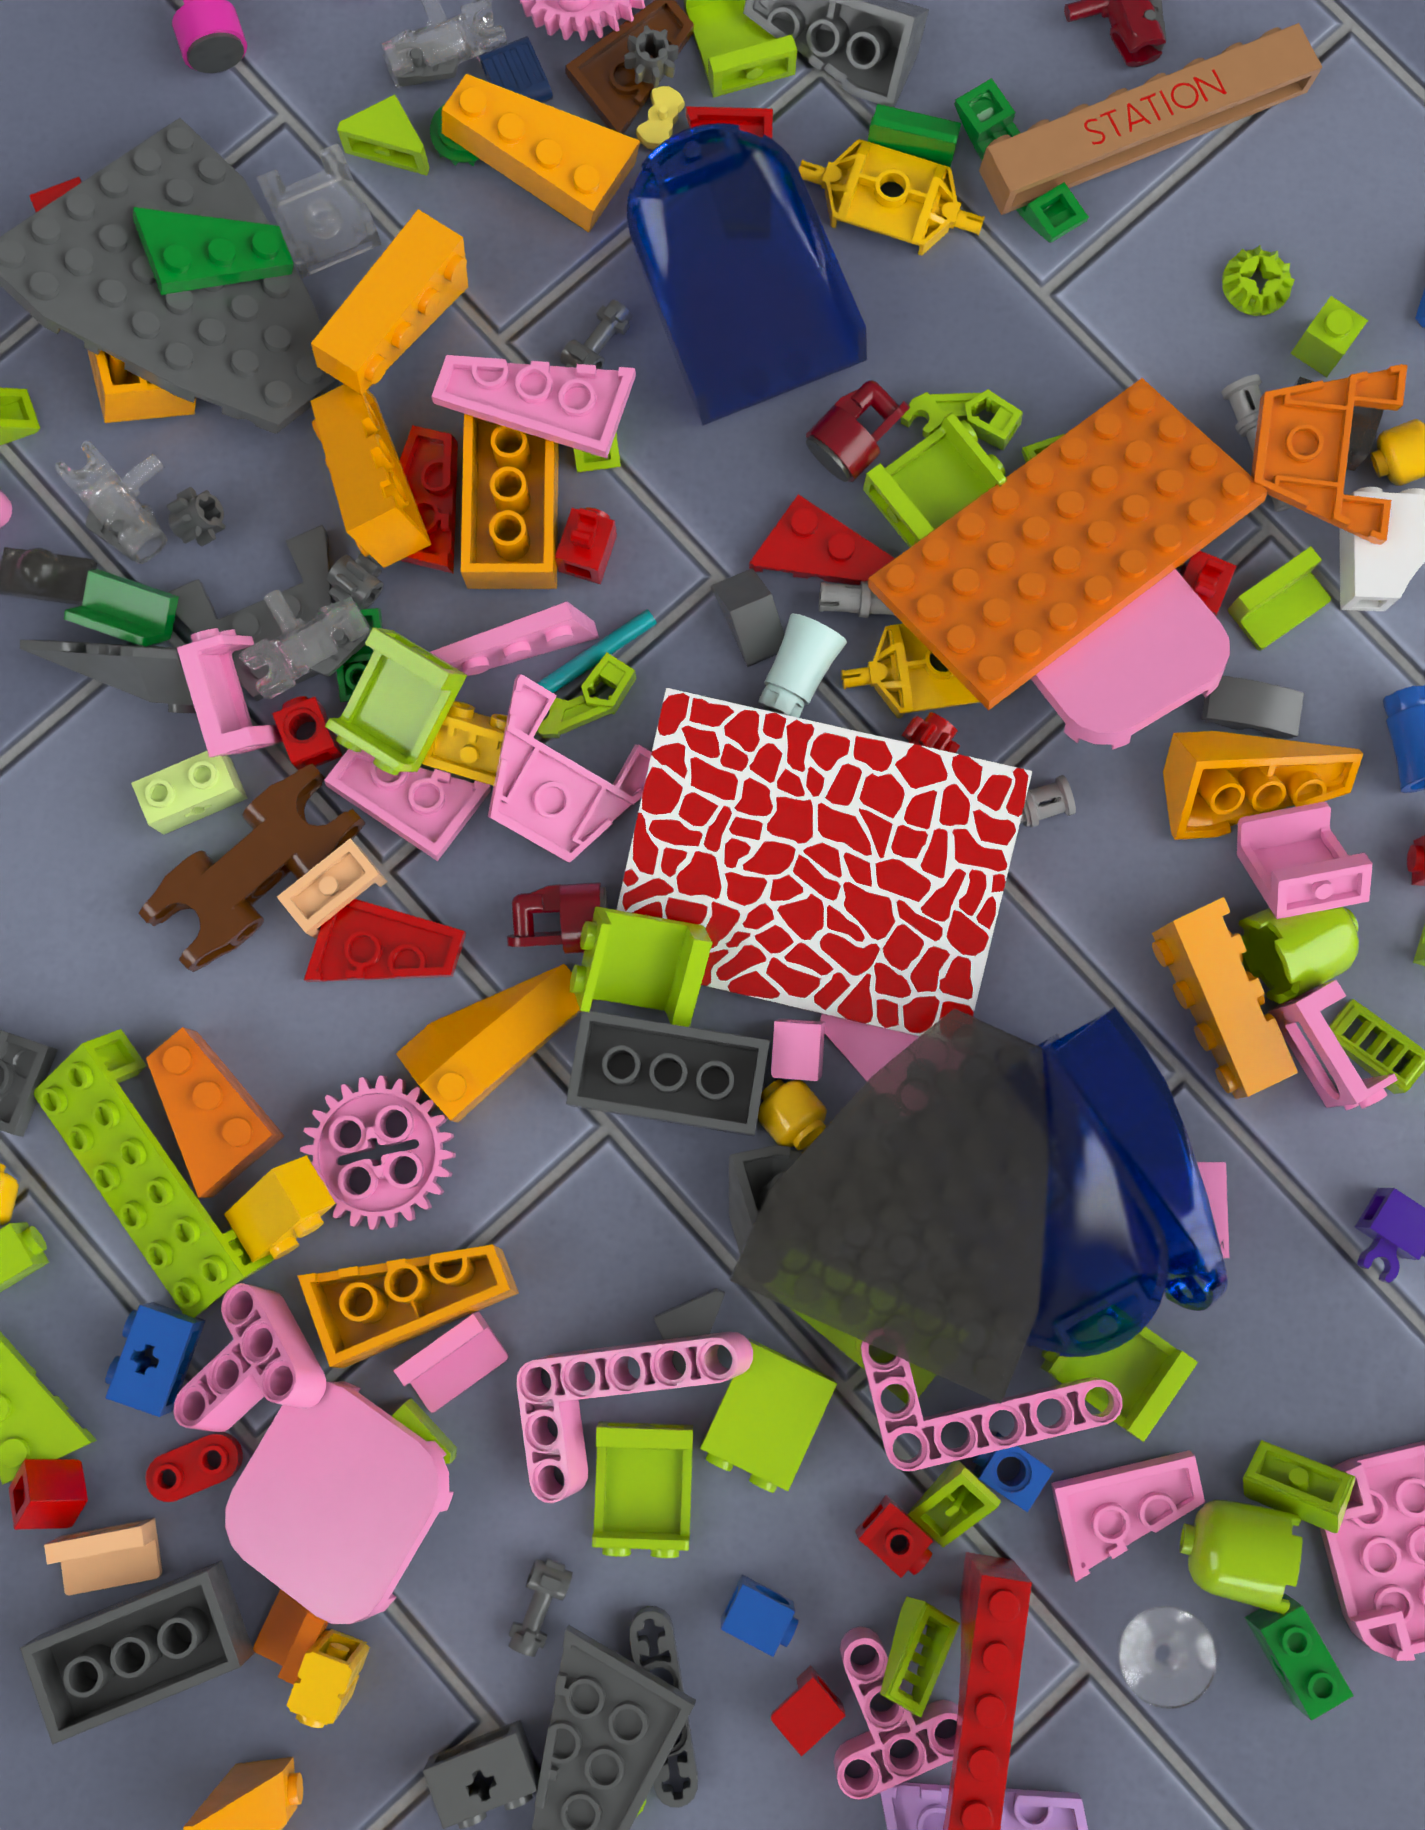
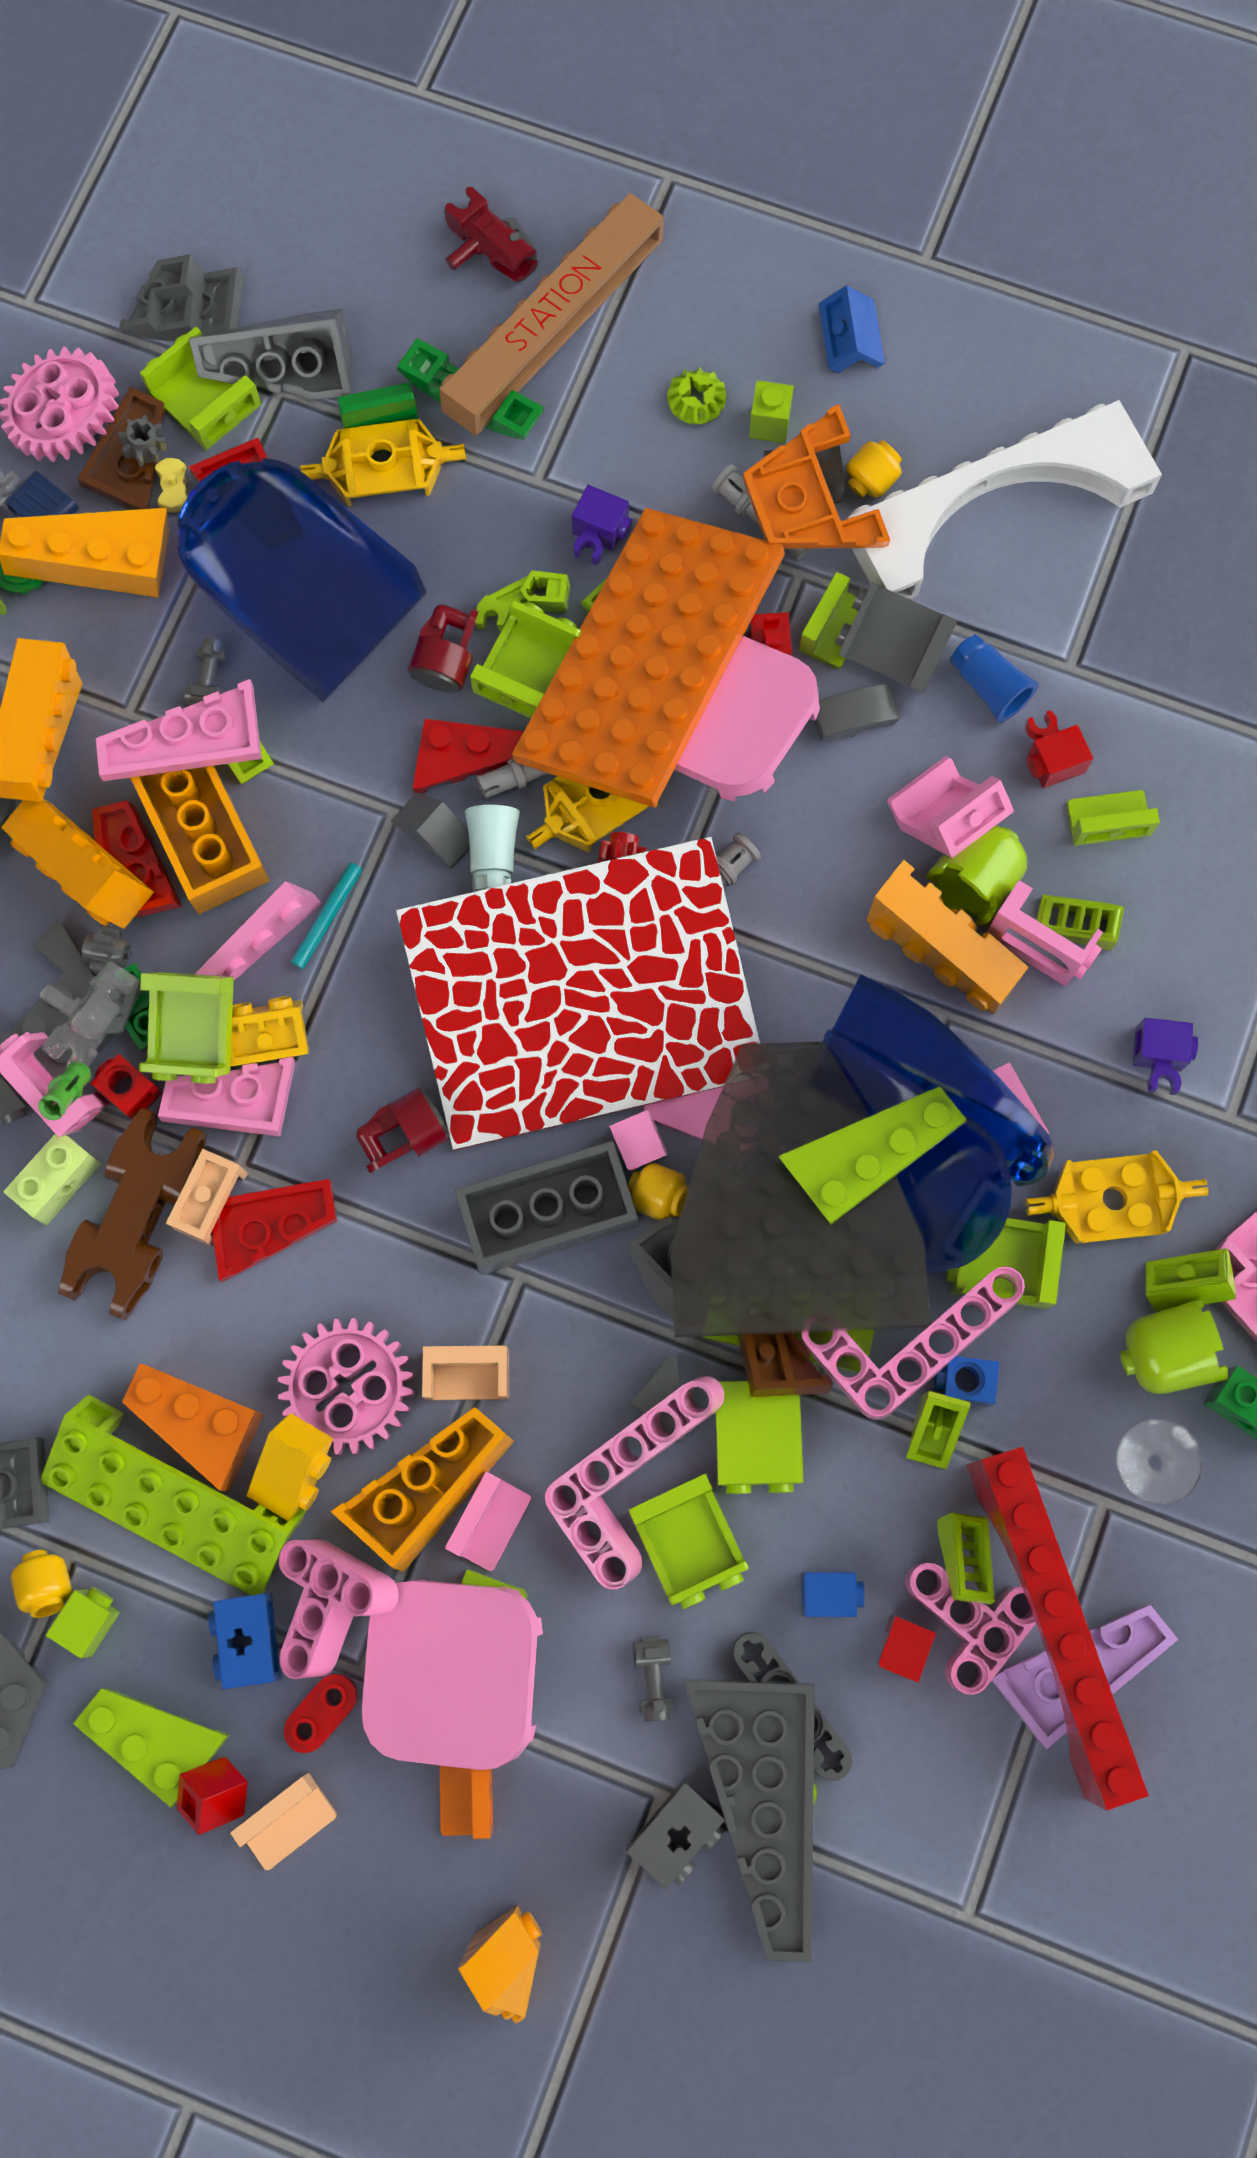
camera: 25 degrees left, 5 degrees down
(137, 1652) = (348, 1880): dark grey brick -> none
(224, 719) = (64, 1090): none -> bright green pin
(327, 1678) = (513, 1819): yellow brick -> none
(481, 1045) = (390, 1258): light orange wedge -> none
(504, 1199) = (465, 1373): none -> light nougat panel
(547, 793) = (345, 1040): bright pink wing -> none
(571, 714) = (338, 962): lime piece -> none
(586, 544) = (277, 835): red brick -> none
(641, 963) = (483, 1132): lime panel -> none
(824, 1363) = (780, 1366): none -> reddish brown wing
(886, 1522) = (890, 1483): red brick -> none
(1022, 1195) = (864, 1156): none -> lime wing
(1085, 370) = (599, 522): none -> dark purple brick
(1121, 1504) = (1064, 1365): bright pink wing -> none
(1229, 776) = (862, 772): light orange wedge -> none
(1302, 1369) = (1144, 1181): none -> yellow plate
(1338, 647) = (895, 636): none -> dark grey panel

